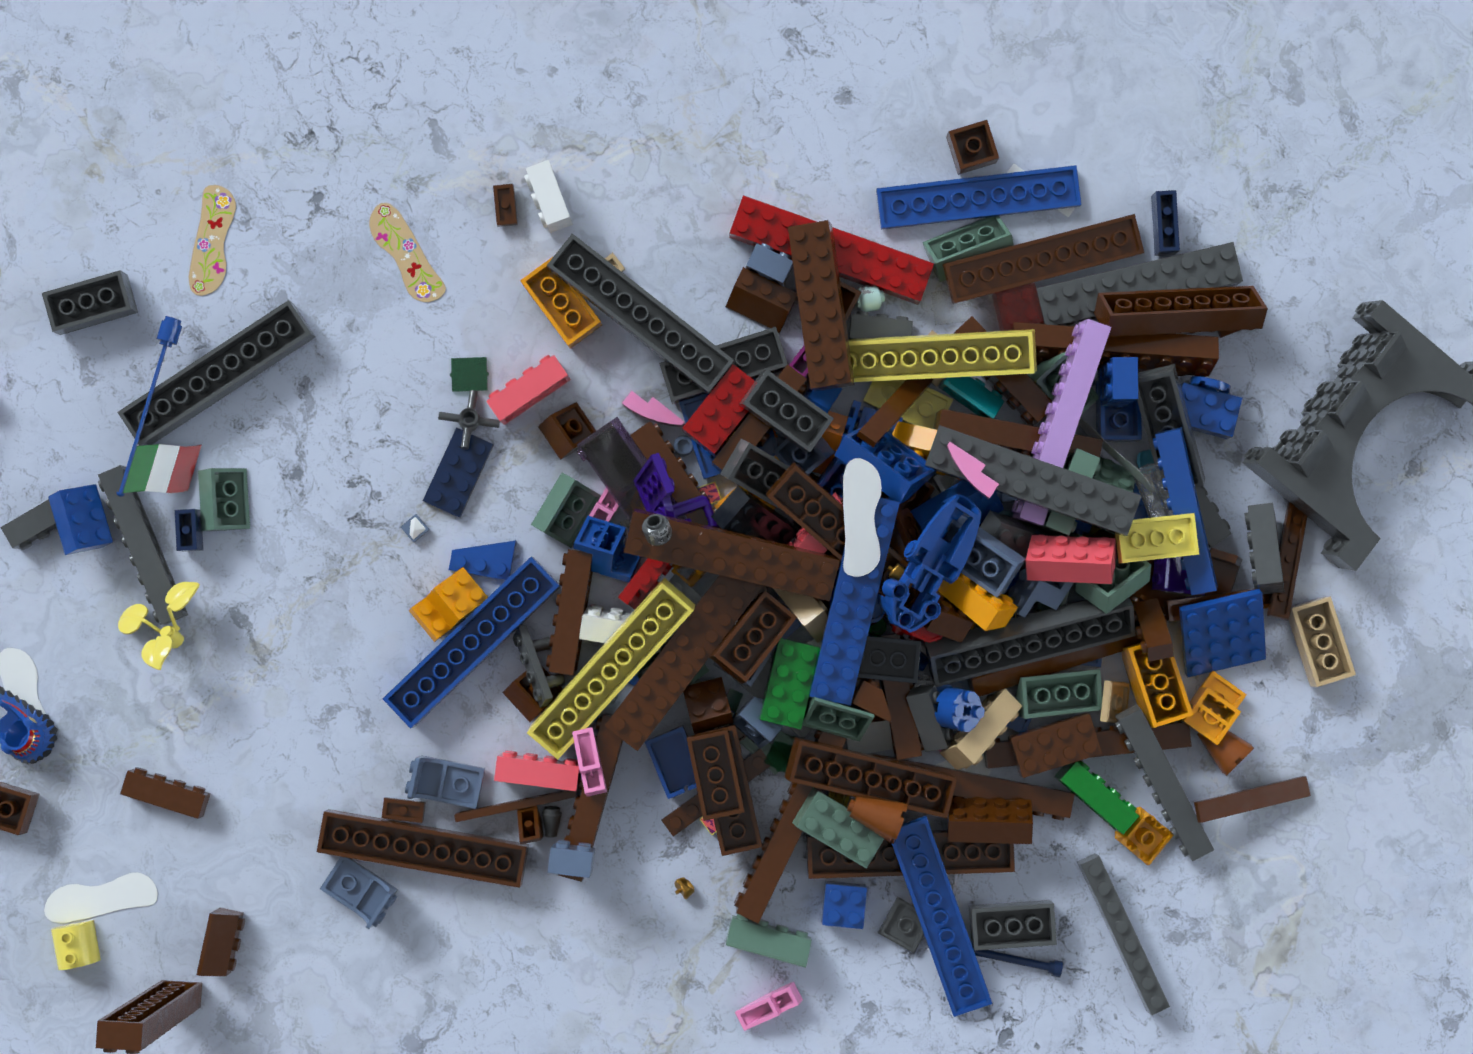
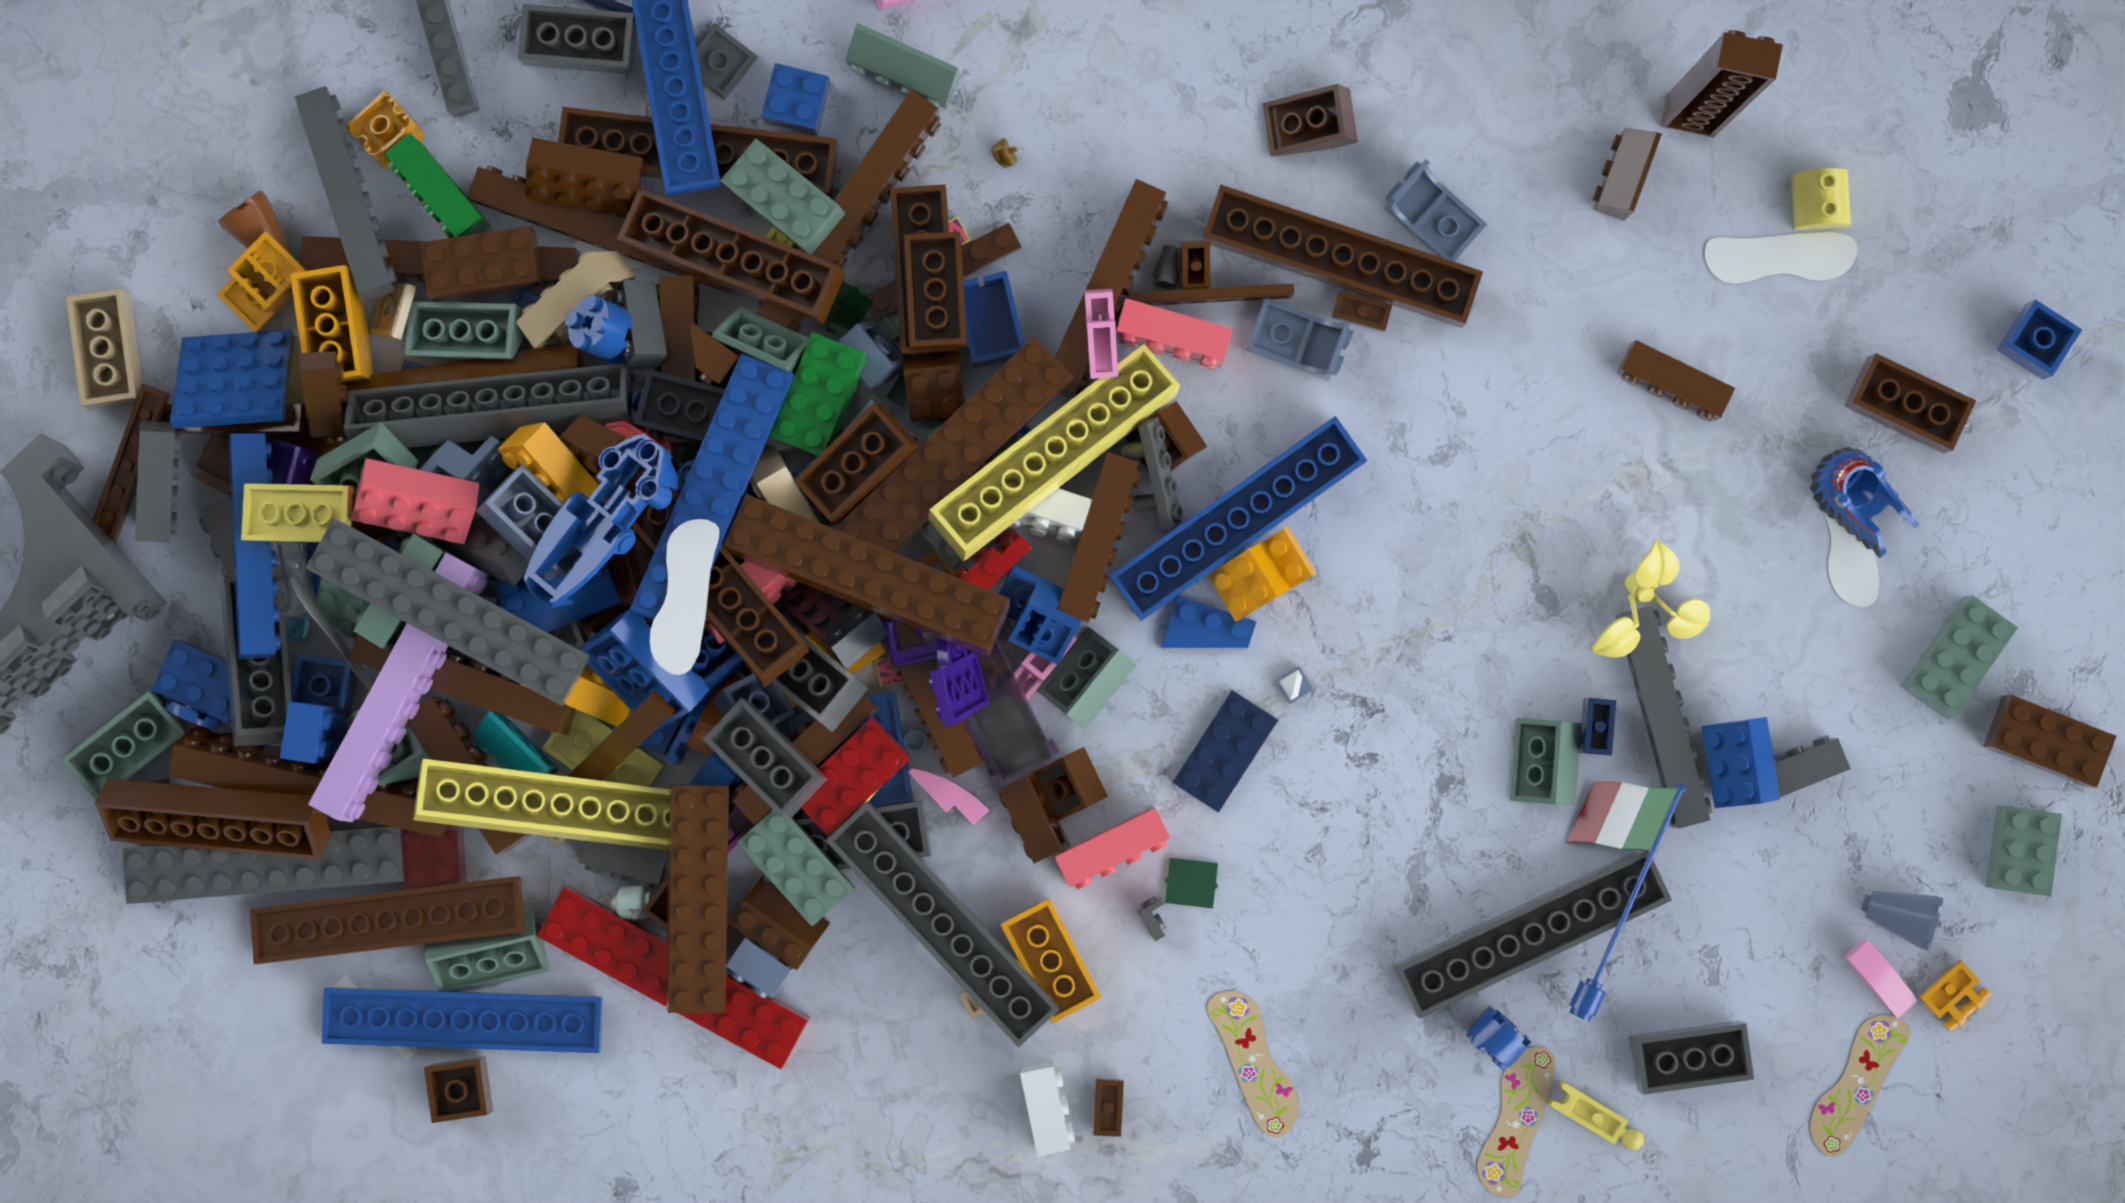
camera: 165 degrees left, 0 degrees up
(153, 250) = (1596, 1117): none -> light yellow plate
(231, 296) = (1499, 1037): none -> blue brick
(461, 946) = (1310, 121): none -> reddish brown slope
(469, 412) = (1200, 809): dark grey bar -> none
(491, 340) = (1153, 923): none -> dark grey bracket
(571, 859) = (1142, 208): sand blue brick -> none
(588, 401) = (1033, 818): none -> reddish brown brick
(657, 529) = (958, 619): dark grey head -> none
(752, 339) = (796, 866): none -> sand green brick
(879, 816) = (726, 202): dark orange cone -> none
(896, 572) = (650, 517): pearl gold piece -> none
(971, 470) = (525, 634): bright pink slope -> none
(1165, 223) = (214, 945): dark blue brick -> none
(1252, 799) = (233, 155): reddish brown tile -> none
(1256, 357) = (124, 742): none -> sand green slope

